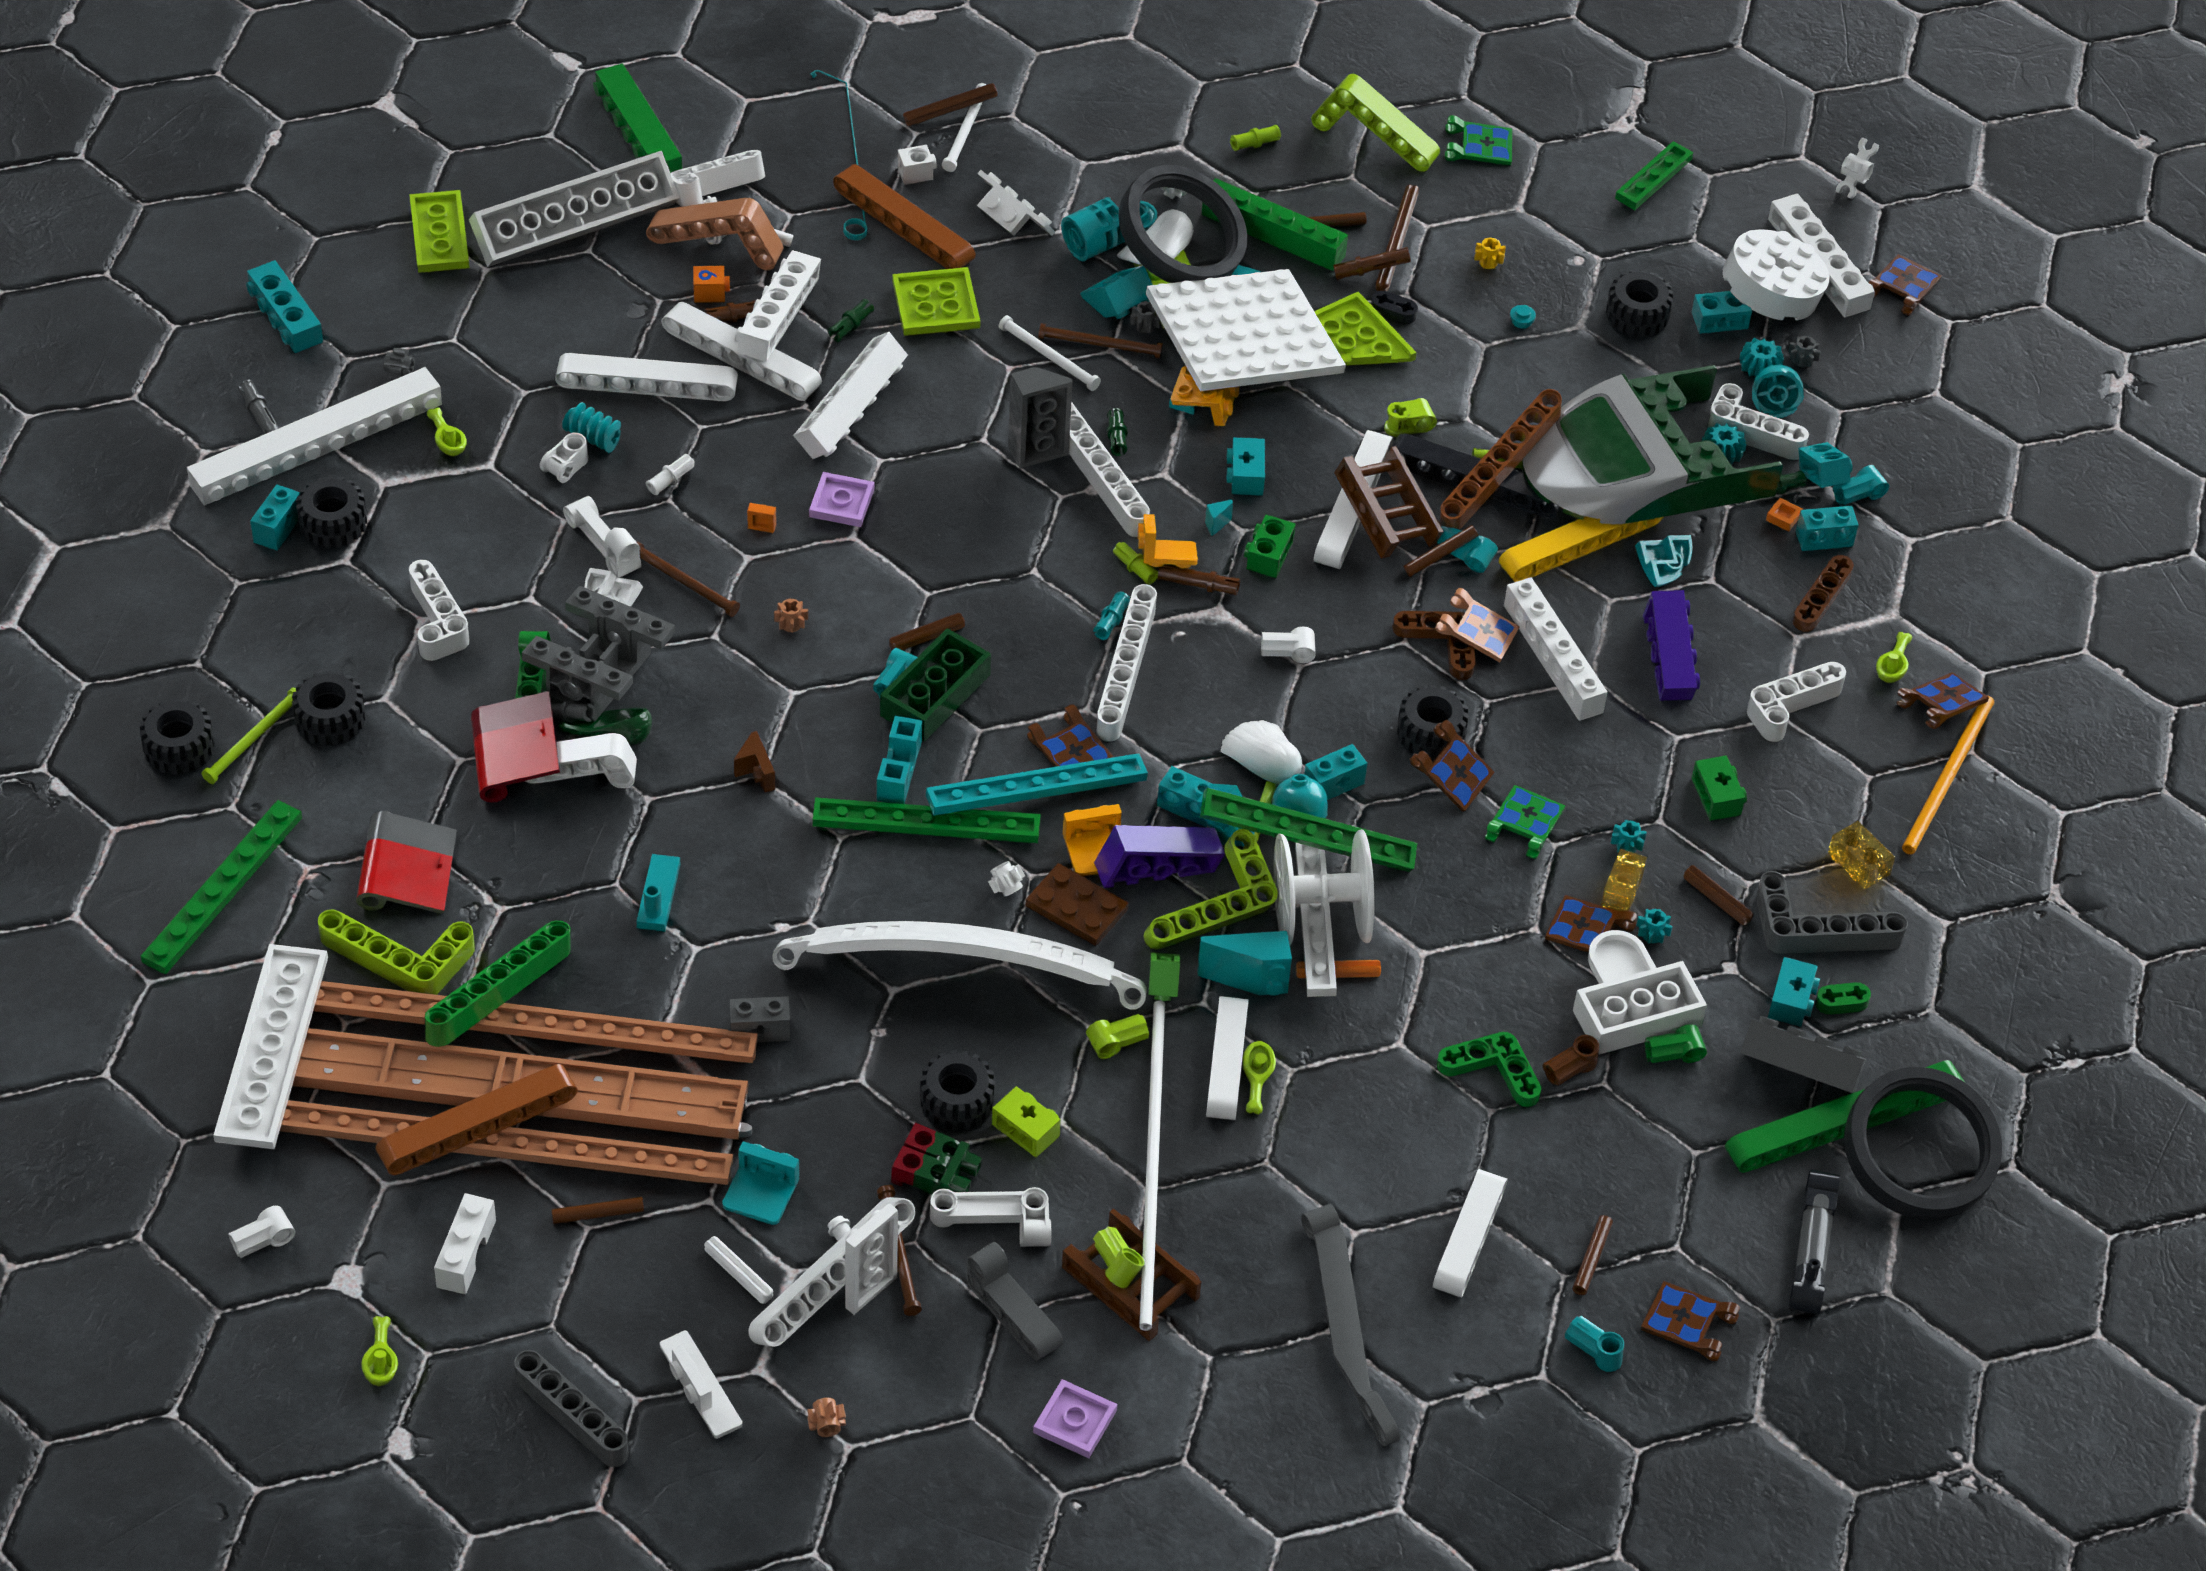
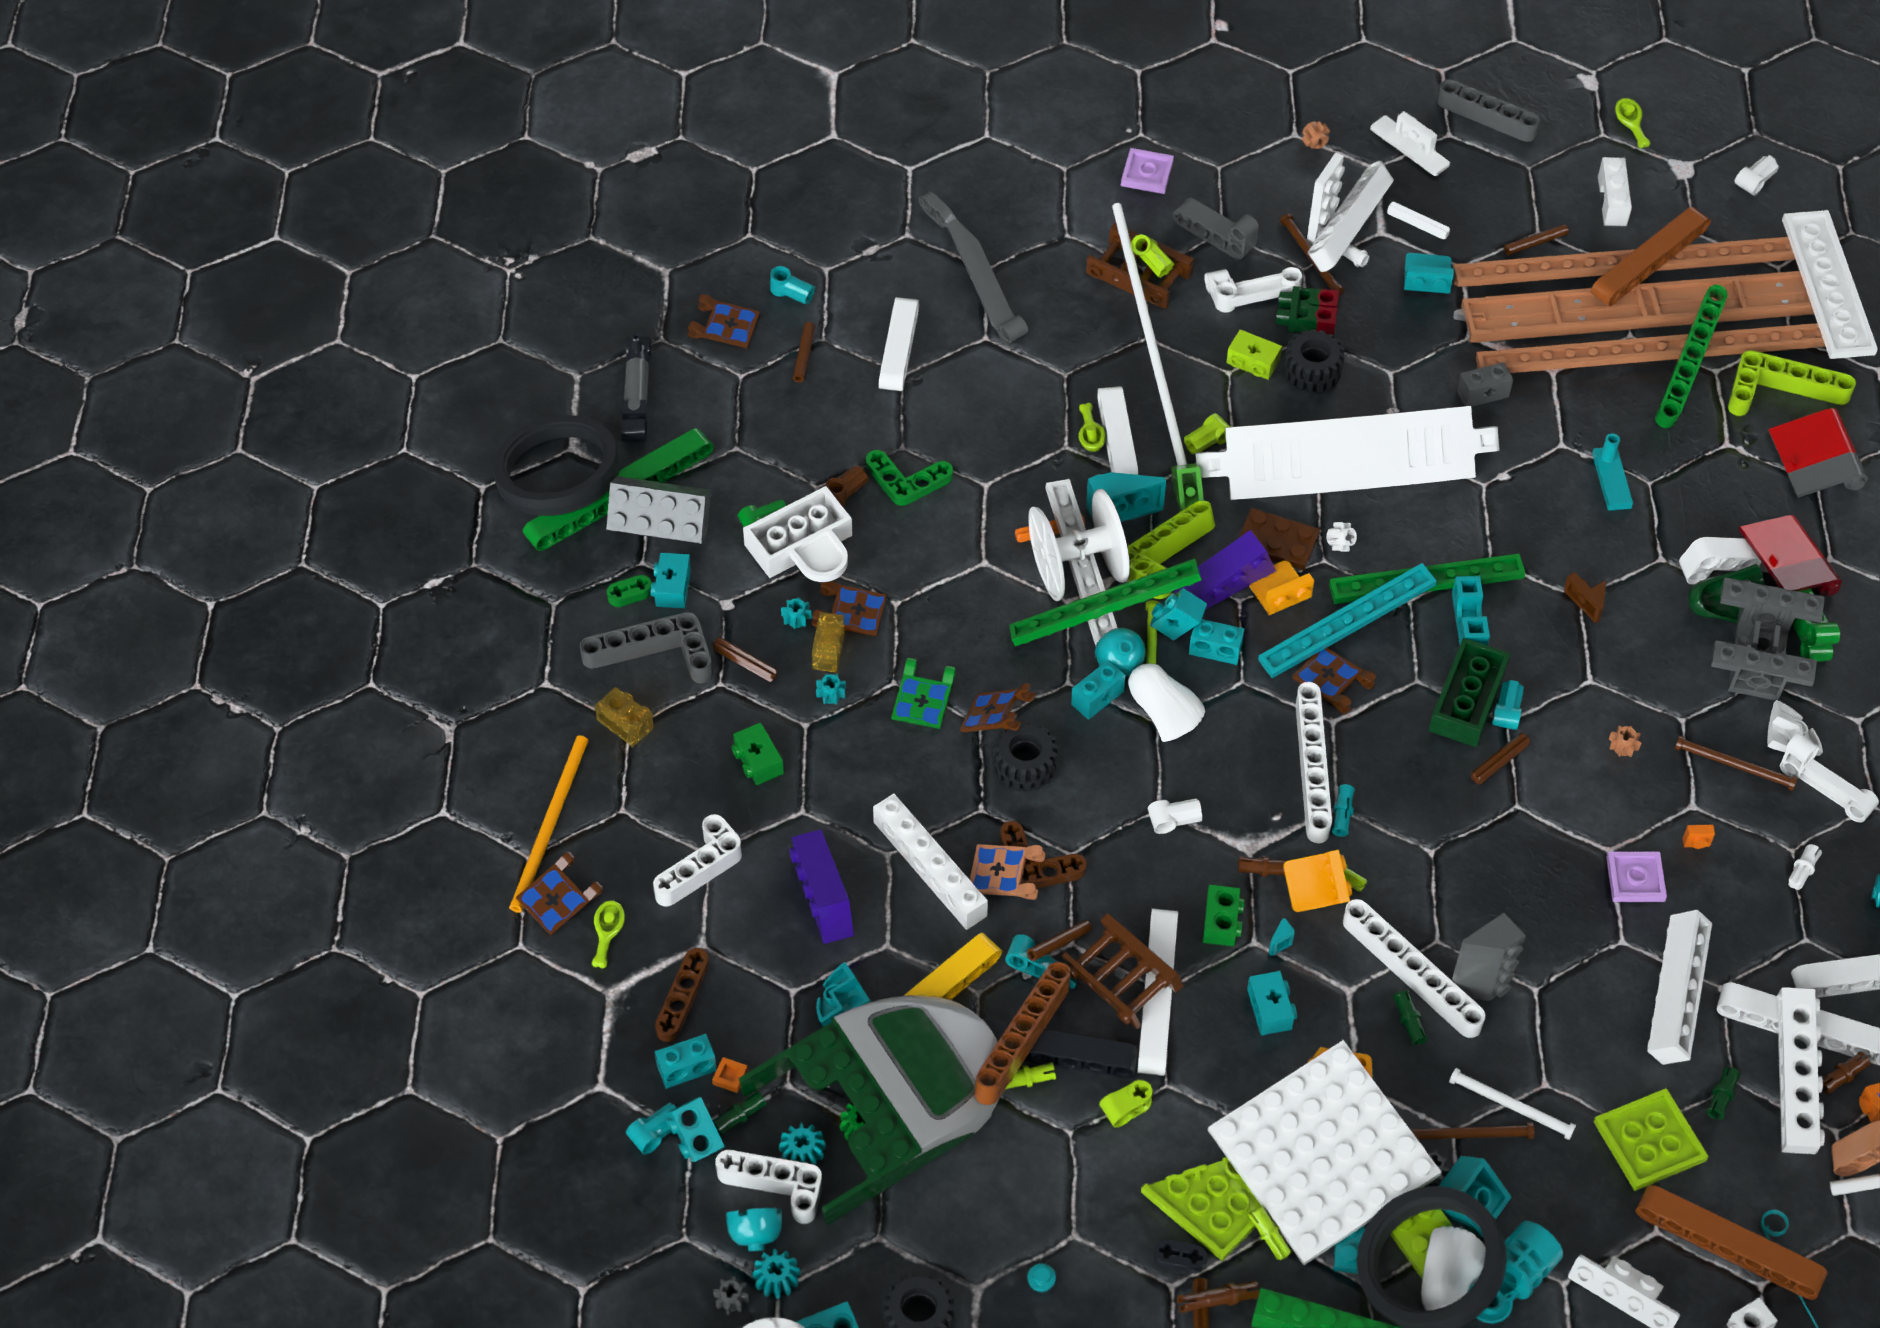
camera: 170 degrees right, 5 degrees up
(1315, 299) = (1269, 1232): none -> lime axle

